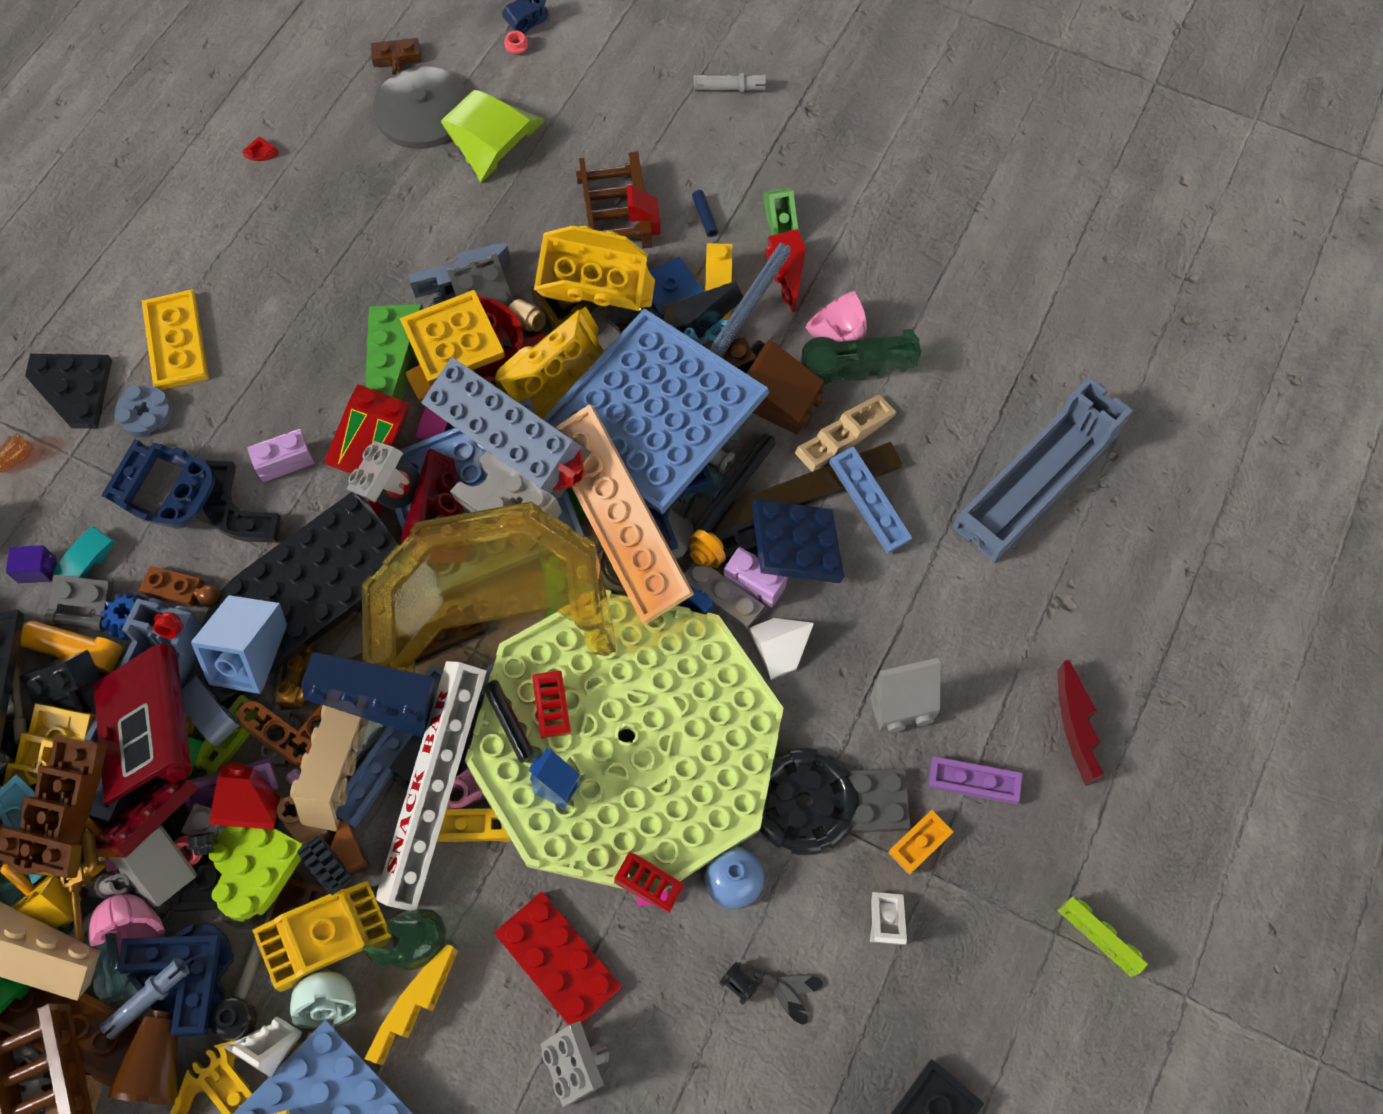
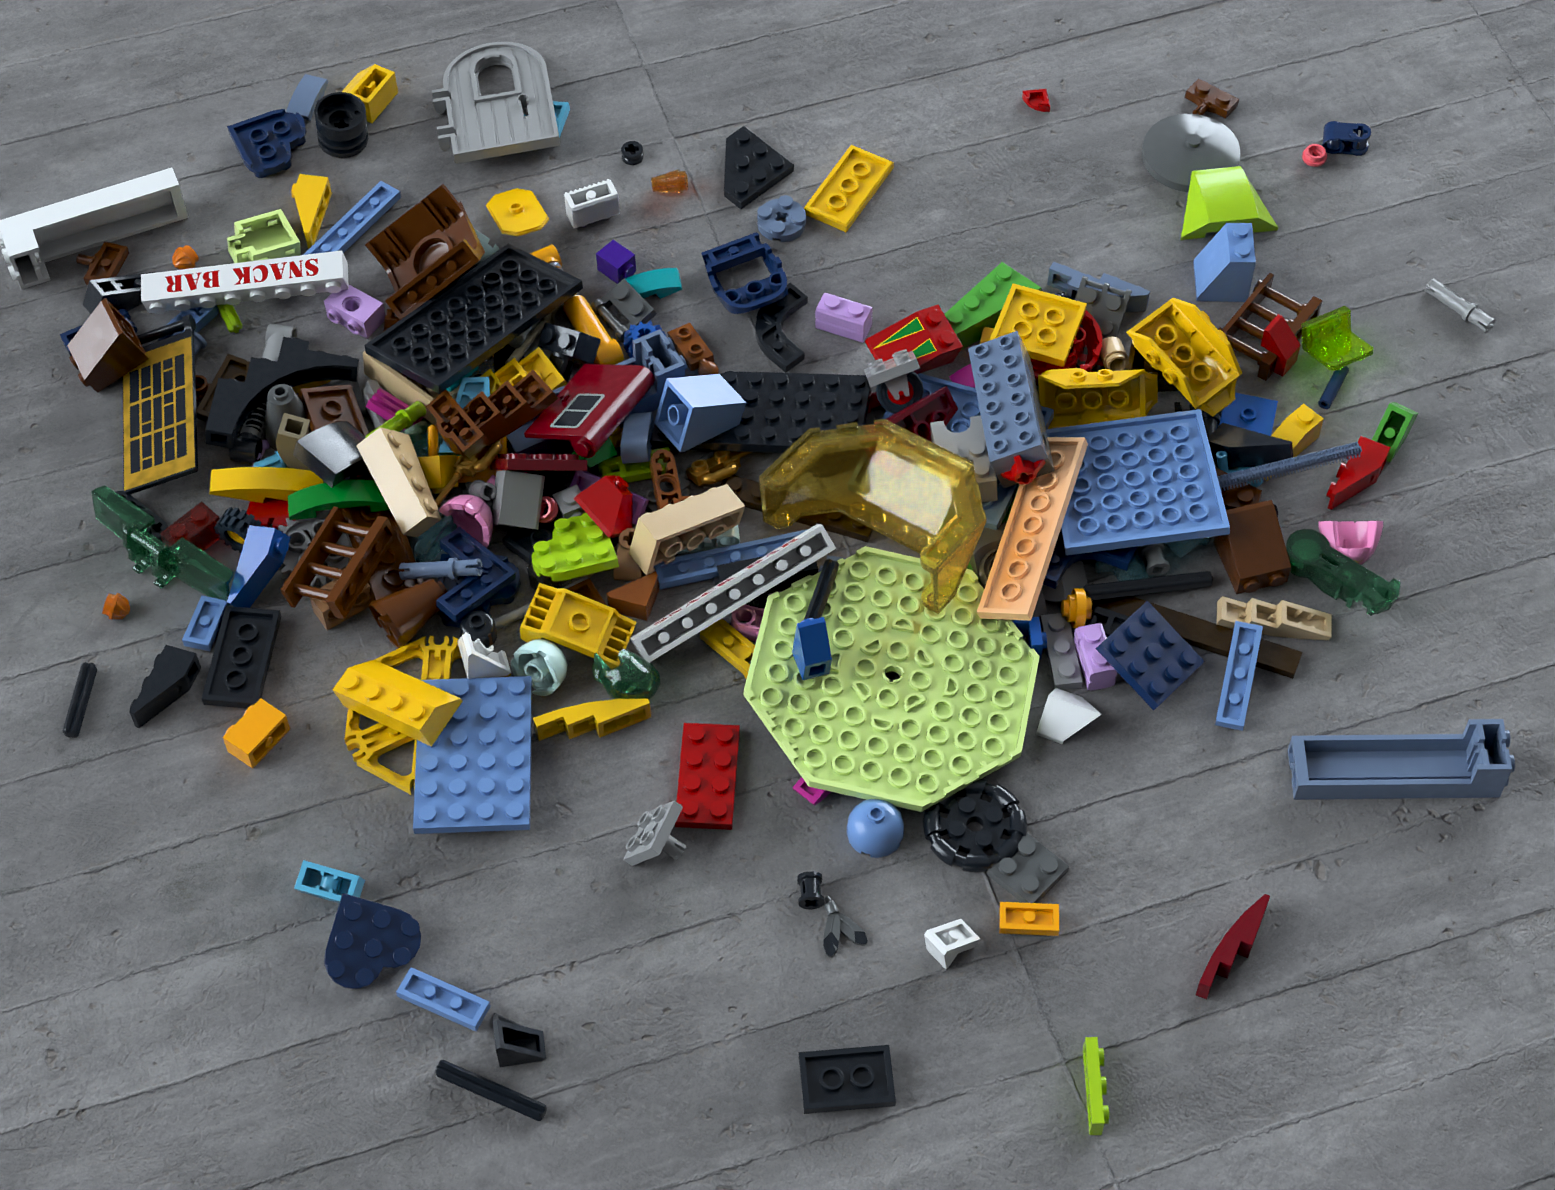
camera: 45 degrees right, 10 degrees down
(167, 625) = (662, 358): red plate -> none
(202, 843) = (558, 508): black plate -> none
(325, 865) = (619, 581): black bush -> none
(370, 692) = (748, 500): dark blue wedge -> none
(542, 176) = (1226, 265): none -> medium blue slope
(545, 680) = (868, 593): red slope -> none
(633, 887) = (806, 748): red slope -> none
(674, 179) = (1331, 340): none -> clear neon green bracket
(907, 695) = (1118, 812): light grey slope -> none
(975, 780) = (1112, 916): medium lavender plate -> none

